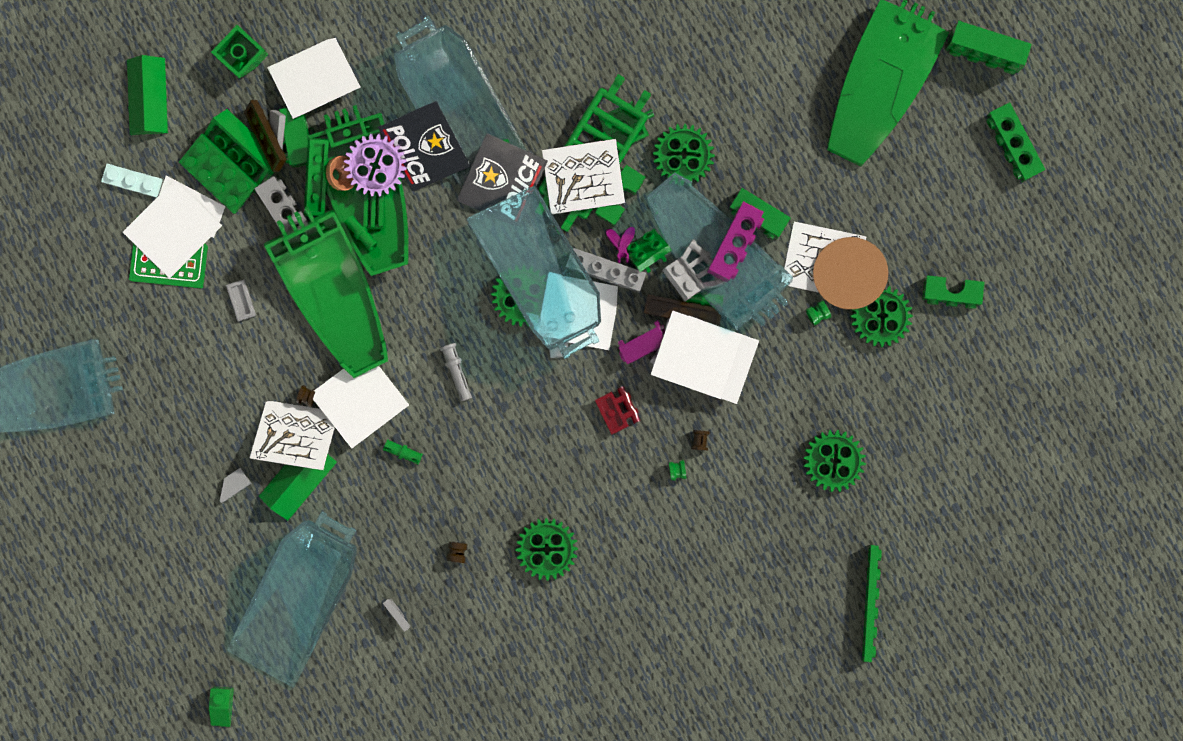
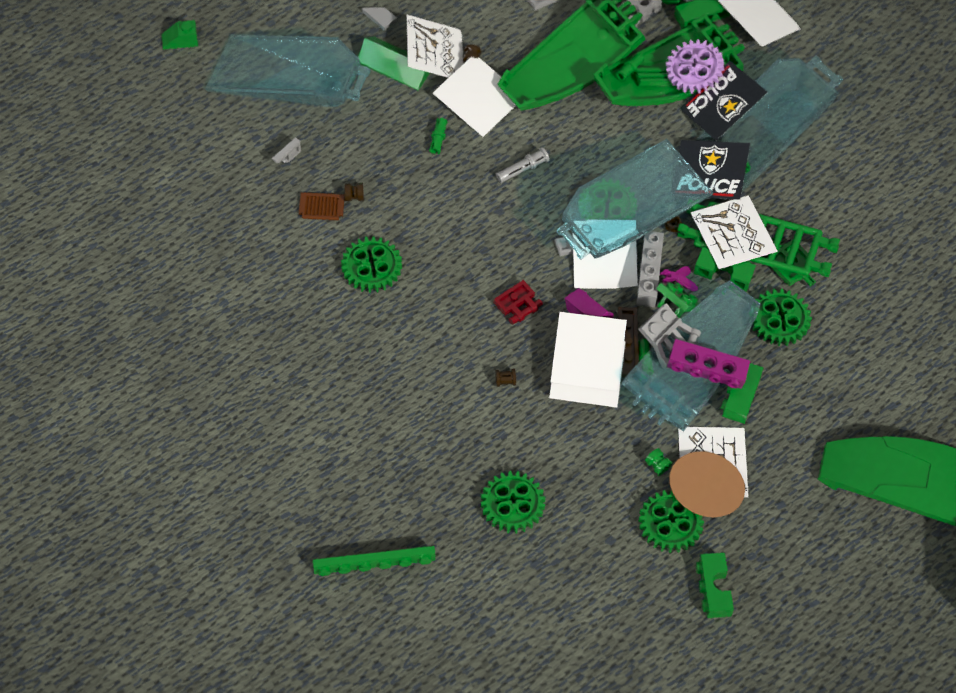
camera: 75 degrees right, 25 degrees down
(316, 176) = (673, 25): green plate -> none
(343, 182) = (684, 34): nougat piece -> none
(464, 588) = (321, 206): none -> reddish brown window
(677, 470) = (471, 362): green wheel -> none
(1016, 131) = (867, 642): green brick -> none

